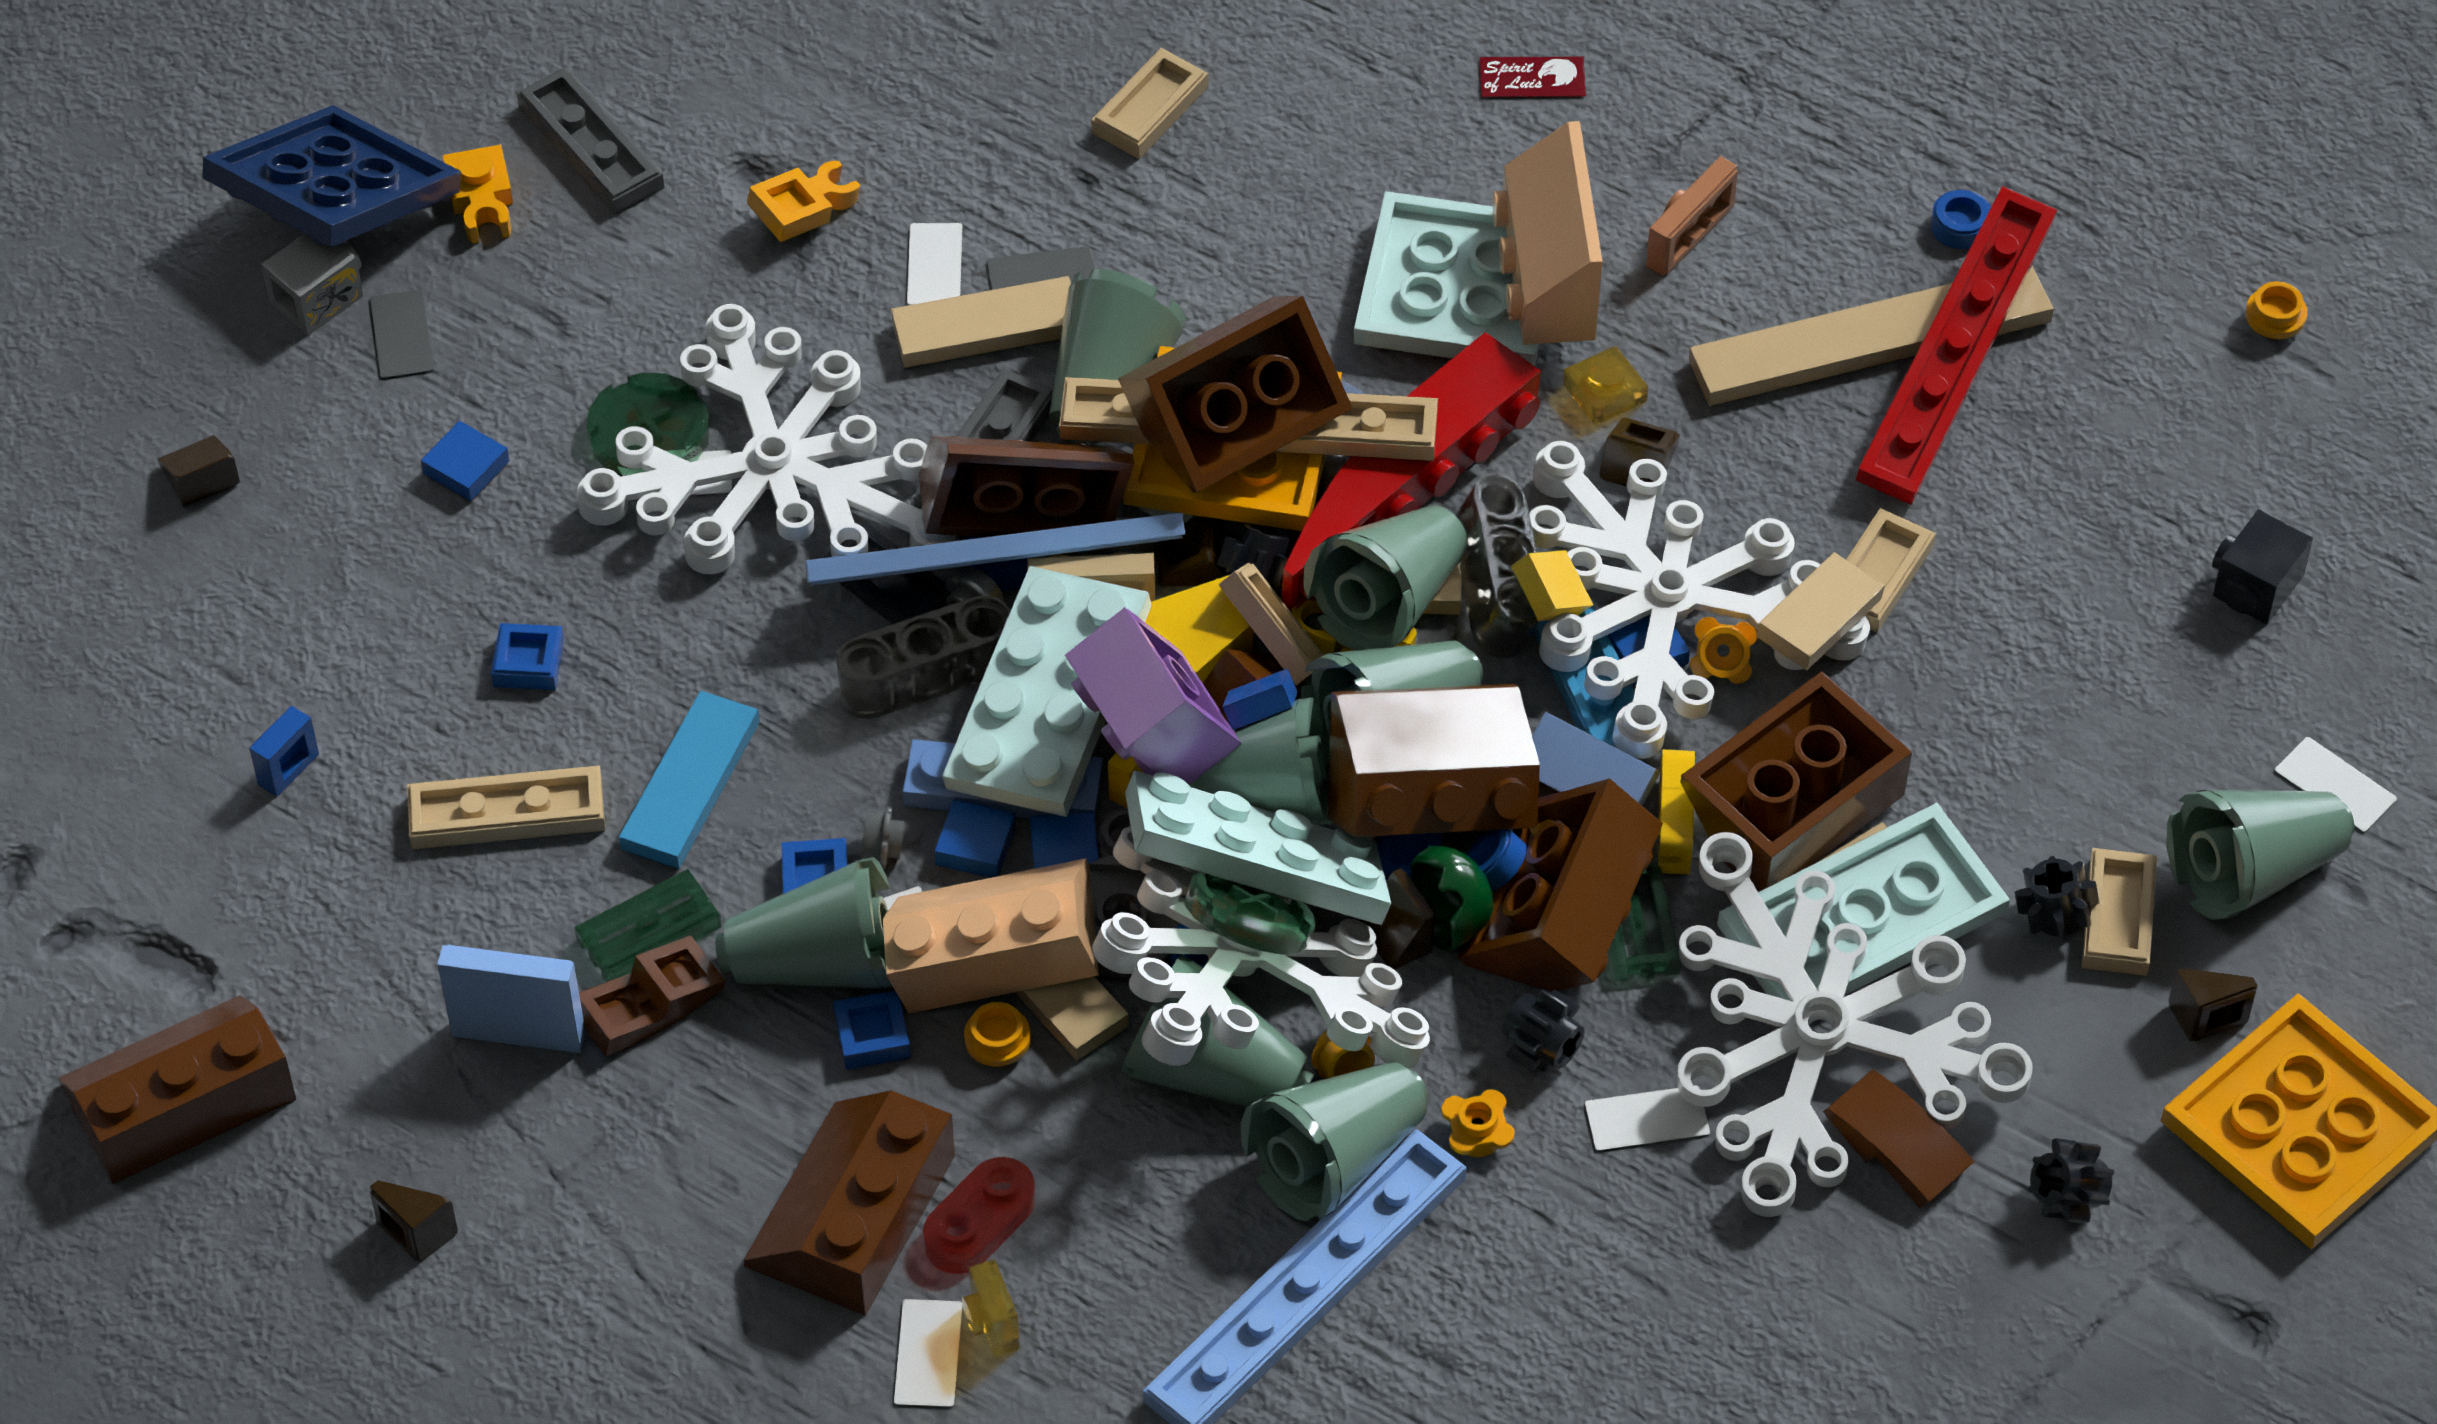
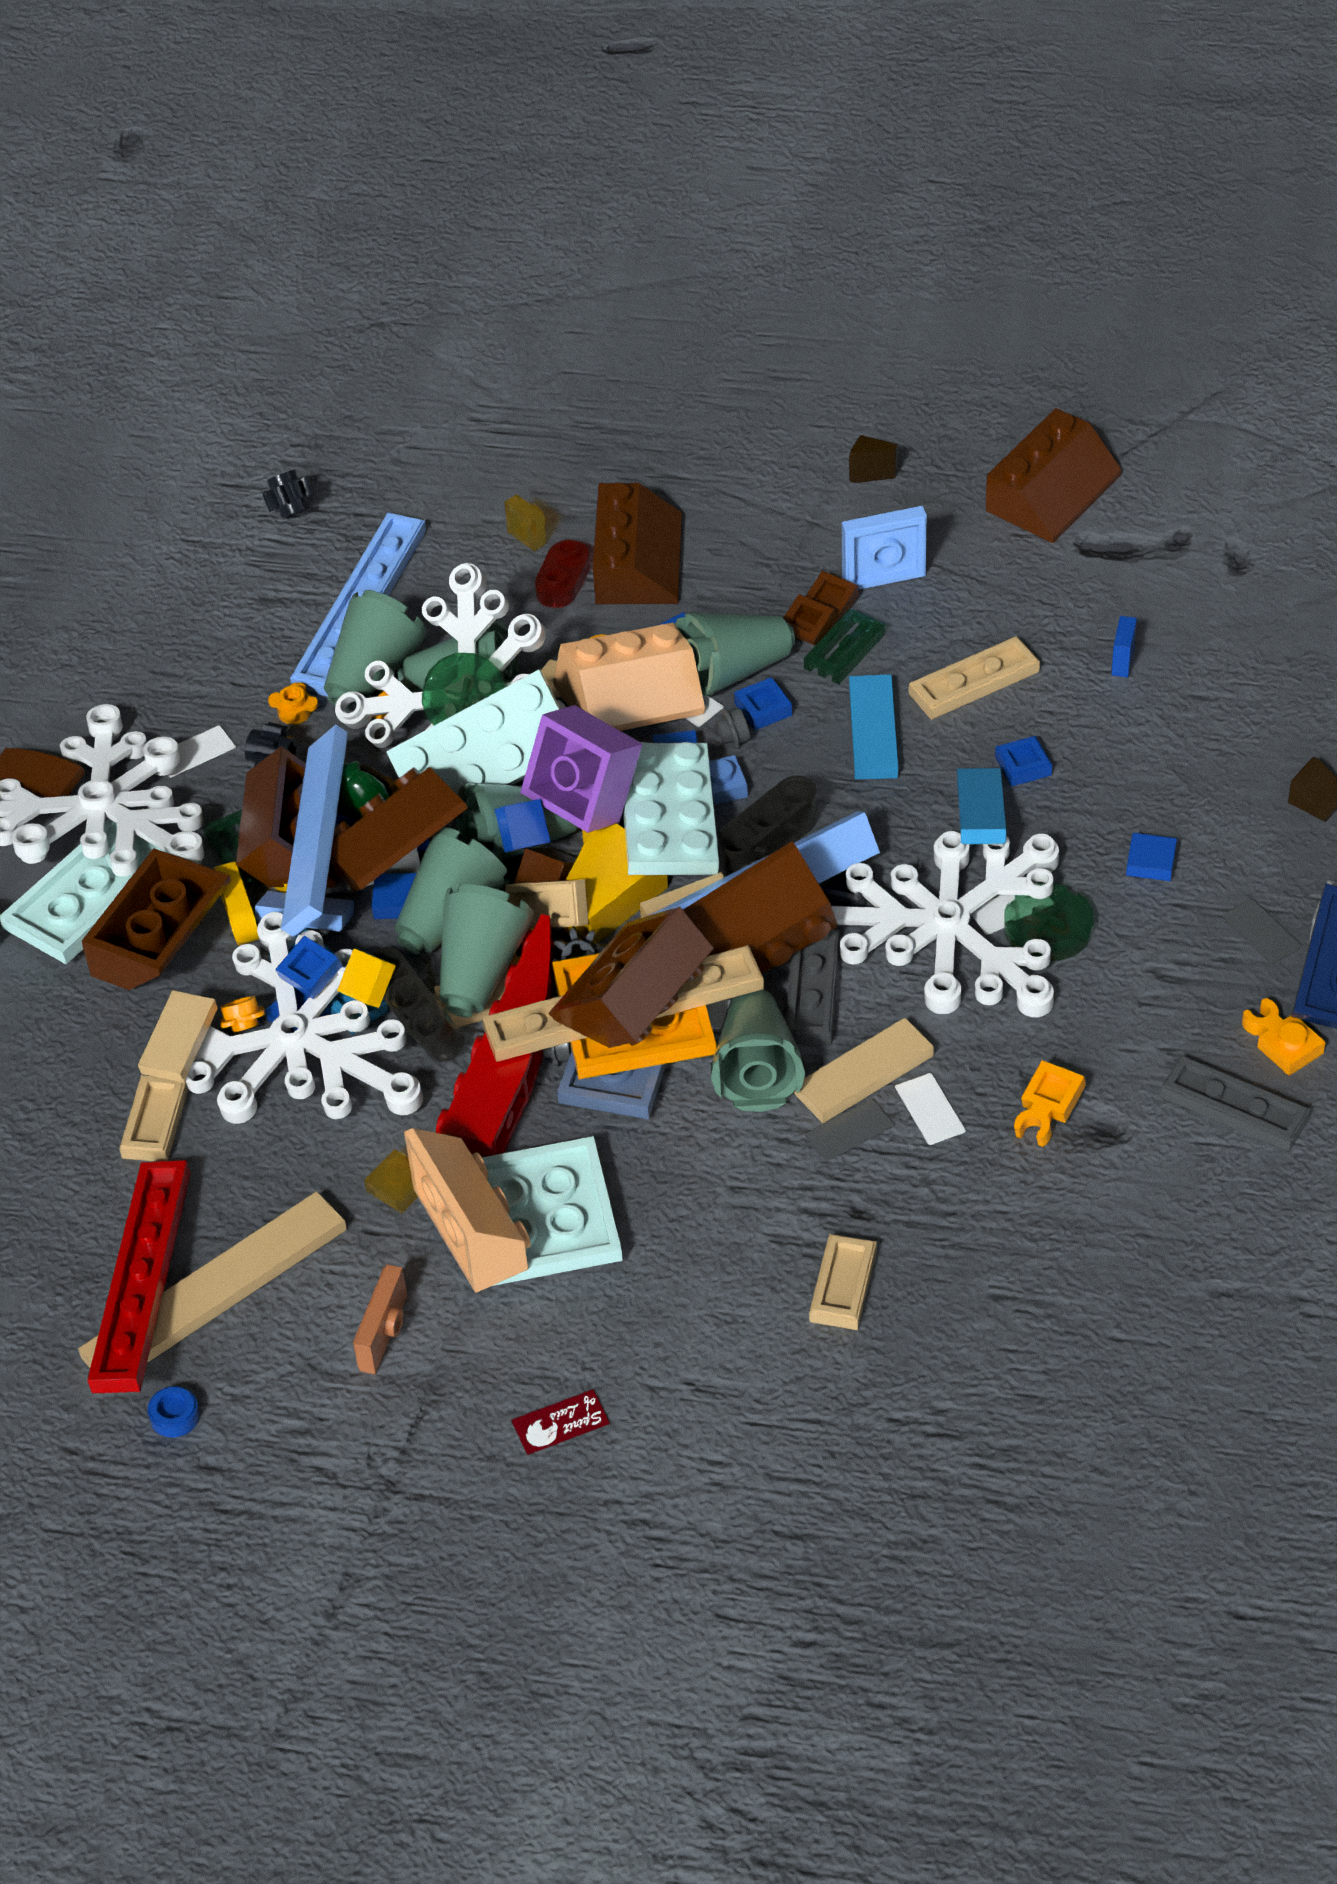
camera: 160 degrees right, 5 degrees down
(637, 572) = (981, 806): none -> dark azure tile
(928, 1352) = (558, 512): white sticker -> none
(1539, 798) = (314, 831): none -> light blue tile
(1620, 626) = (308, 967): none -> blue tile
(1635, 441) = (354, 1143): dark brown slope -> none

